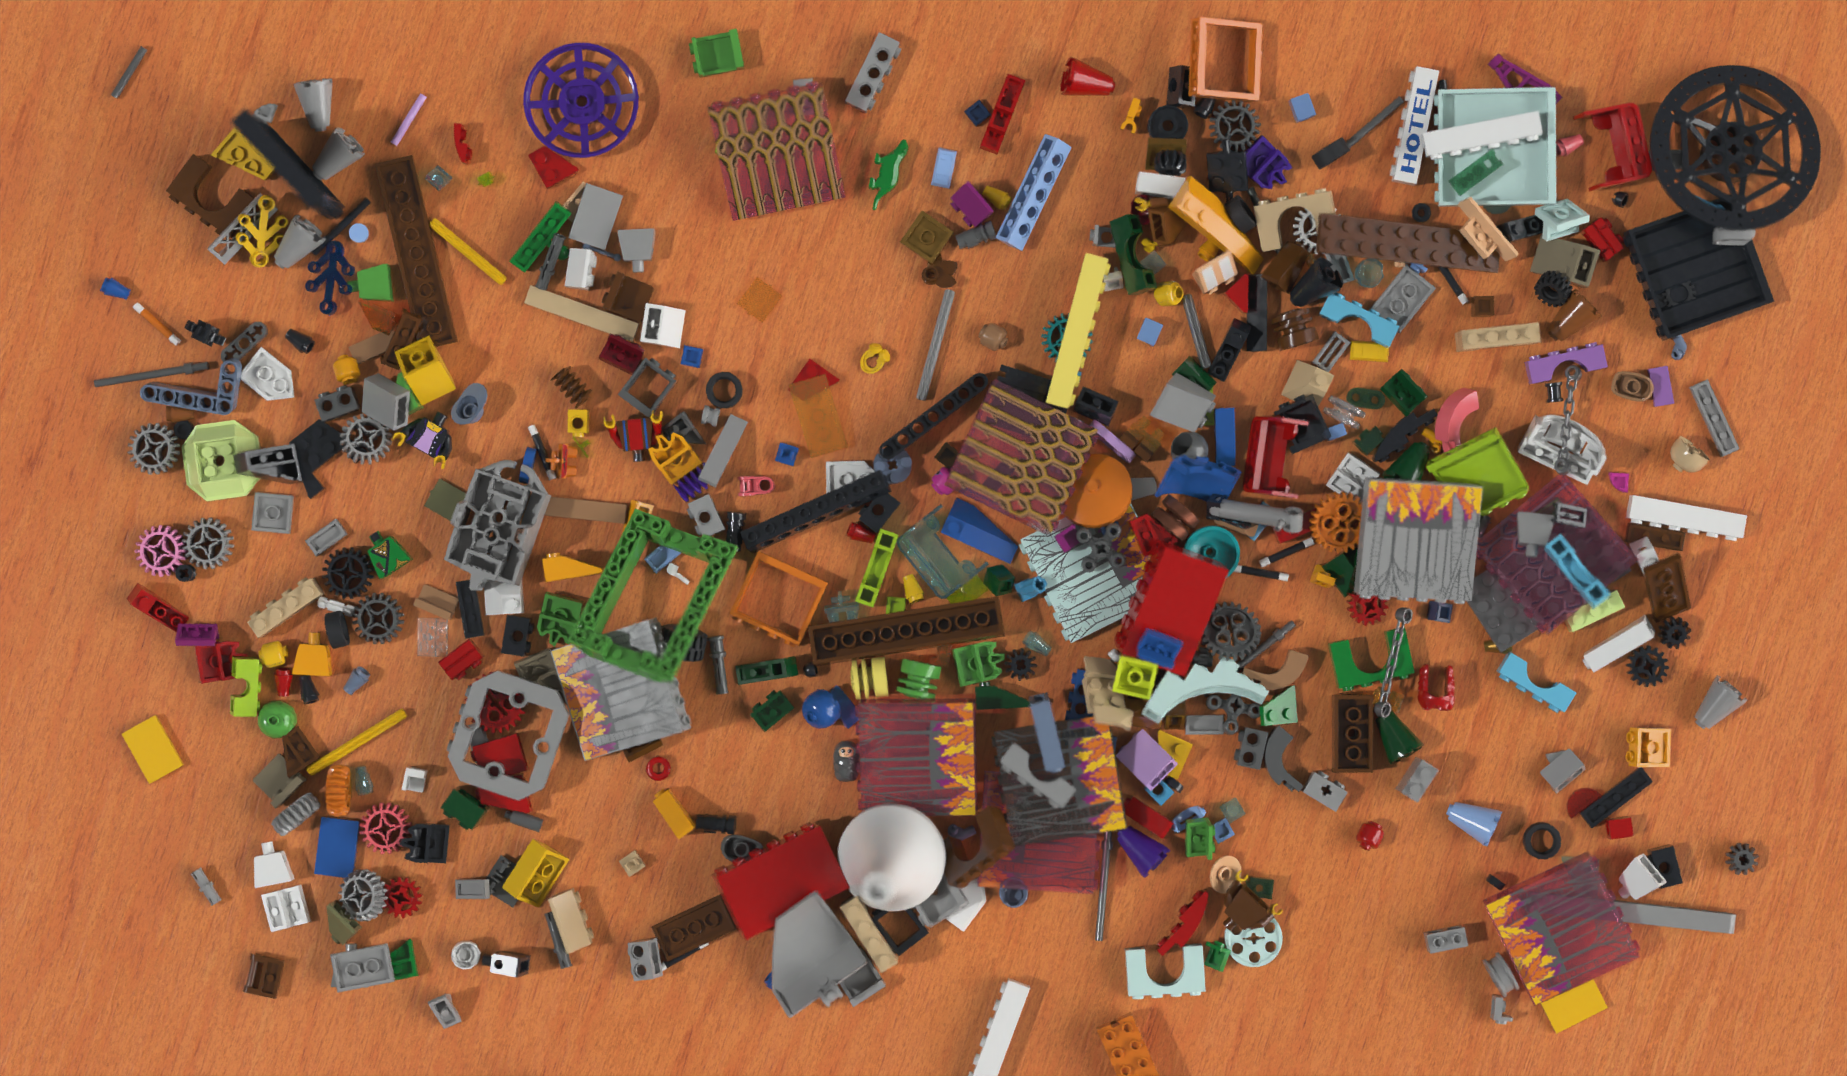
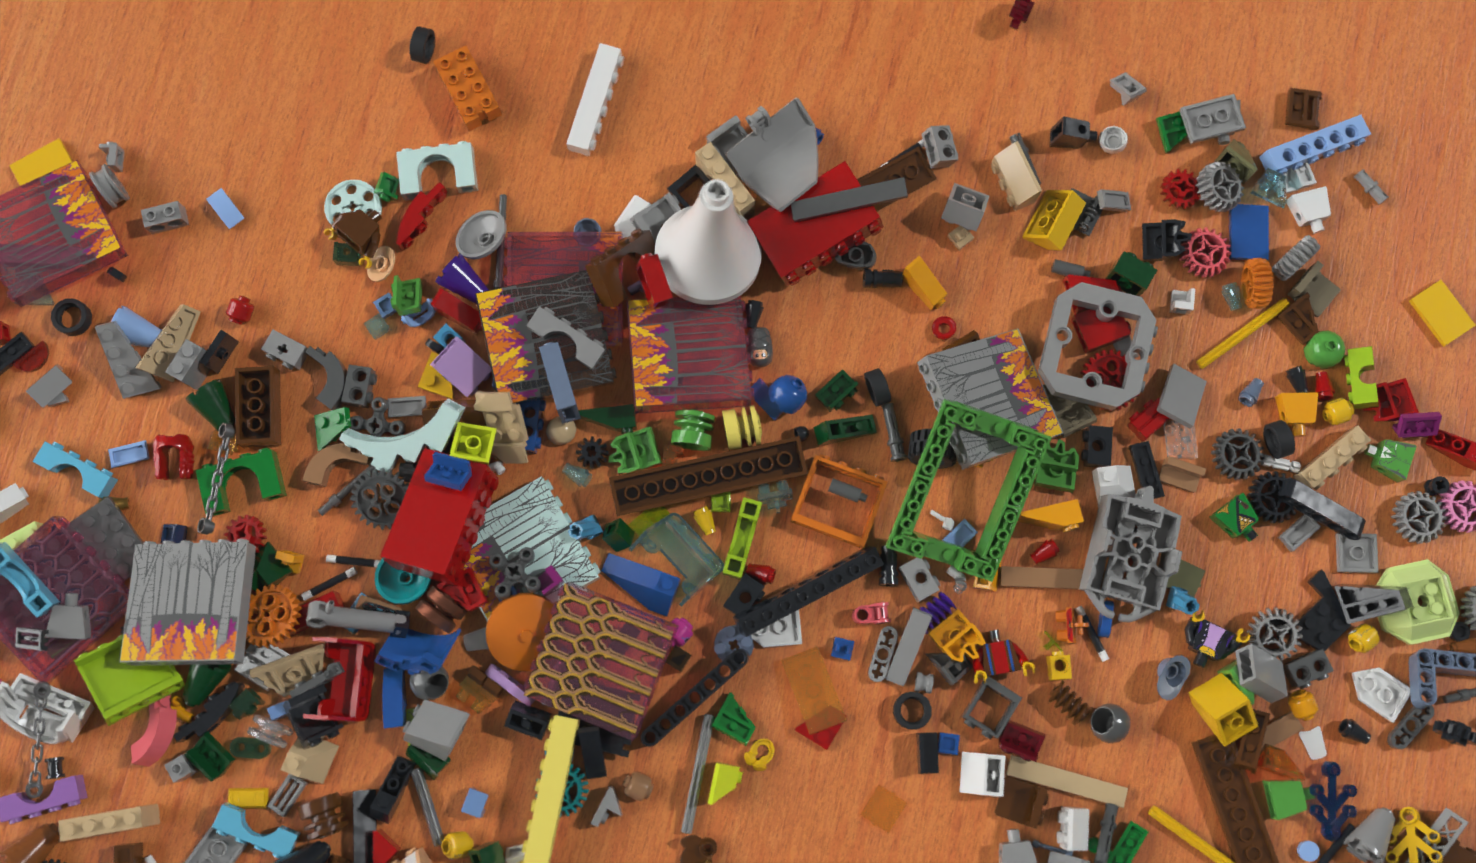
camera: 170 degrees right, 10 degrees down
(226, 604) = (1391, 458): none -> bright green torso
(279, 429) = (1363, 638): none -> yellow head
(305, 556) = (1321, 509): none -> beam
(305, 920) = (1315, 145): none -> light blue brick
(309, 890) = (1271, 188): none -> clear light blue wing
(339, 333) = (1314, 743): none -> white sticker
(428, 680) = (1181, 396): none -> light grey tile
(454, 477) = (1181, 600): none -> dark azure piece
(535, 364) = (1110, 723): none -> dark grey helmet
(579, 535) = (1045, 551): none -> red cone
(625, 891) = (965, 207): none -> light grey brick
(665, 512) = (960, 579): none -> arm
(713, 349) = (927, 753): none -> black panel
(731, 710) = (877, 387): none -> black tyre
(737, 457) = (882, 638): none -> light grey beam
(745, 897) = (849, 199): none -> dark grey tile
(770, 606) = (847, 491): none -> dark grey cylinder
(850, 797) = (753, 313): none -> black cone
(897, 391) = (733, 721): none -> green wing
(910, 336) = (724, 781): none -> neon yellow slope
(947, 828) = (653, 281): none -> red window
(1021, 323) = (609, 802): none -> light grey slope
(1034, 371) = (592, 752): none -> black tile
(1054, 686) = (560, 433): none -> tan hair
(1127, 901) = (481, 234): none -> light grey dish
(1295, 459) = (319, 678): none -> dark grey hinge
(1321, 467) = (290, 670): none -> tan wing
(1384, 945) = (225, 208): none -> light blue slope
(1389, 791) = (219, 351): none -> black plate
(1431, 383) = (181, 769): none -> light grey brick
(1440, 803) = (169, 342): none -> tan wing
(1483, 695) = (128, 454): none -> light blue tile
(1483, 786) = (123, 361): none -> light grey wing

